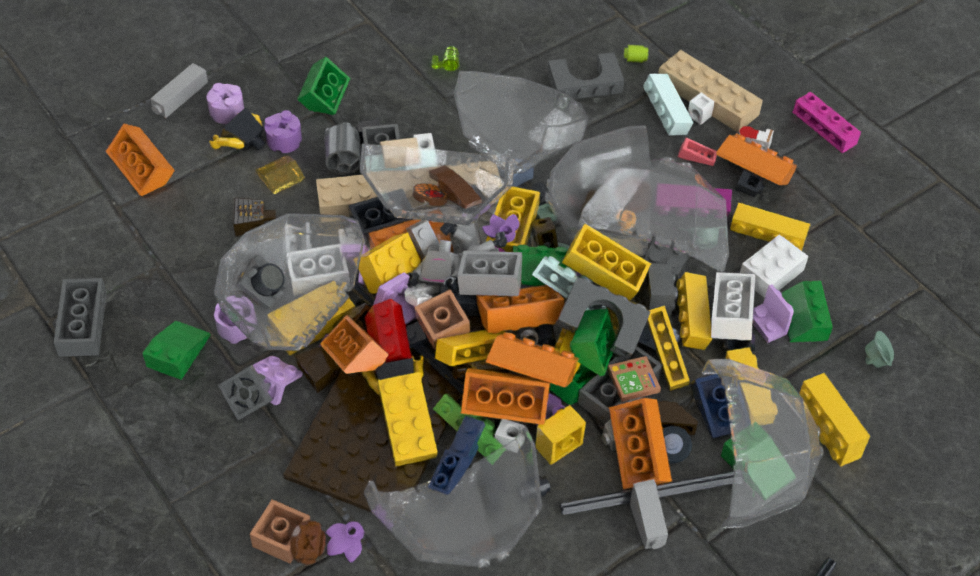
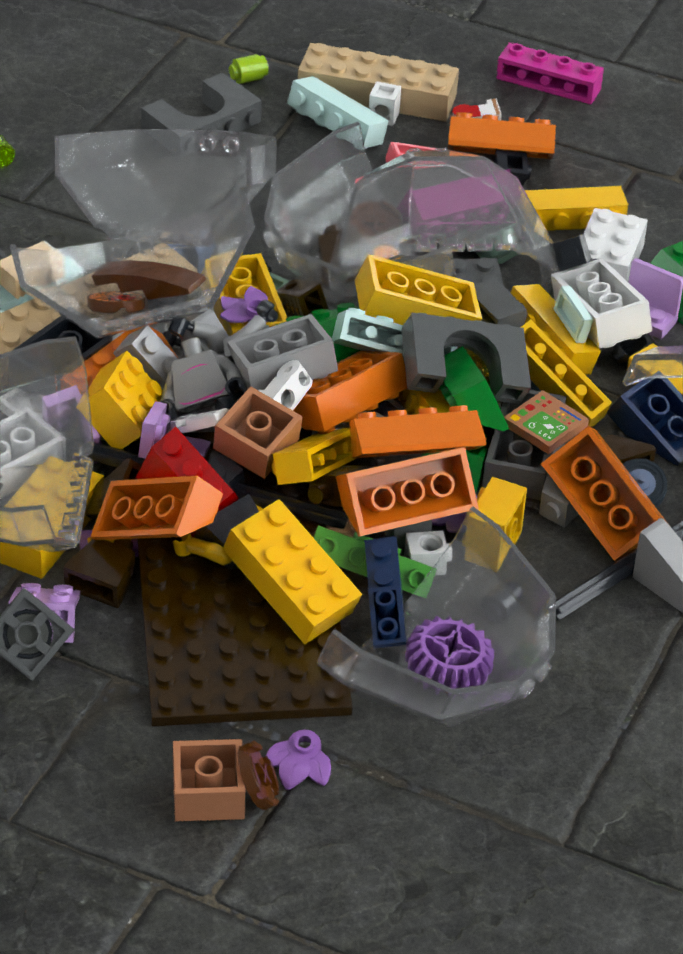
camera: 30 degrees left, 10 degrees down
(460, 501) = (436, 639): none -> medium lavender gear
(475, 297) = (289, 385): none -> white leg
(706, 308) = (573, 314): none -> light aqua tile
(737, 263) = (572, 252): none -> black brick

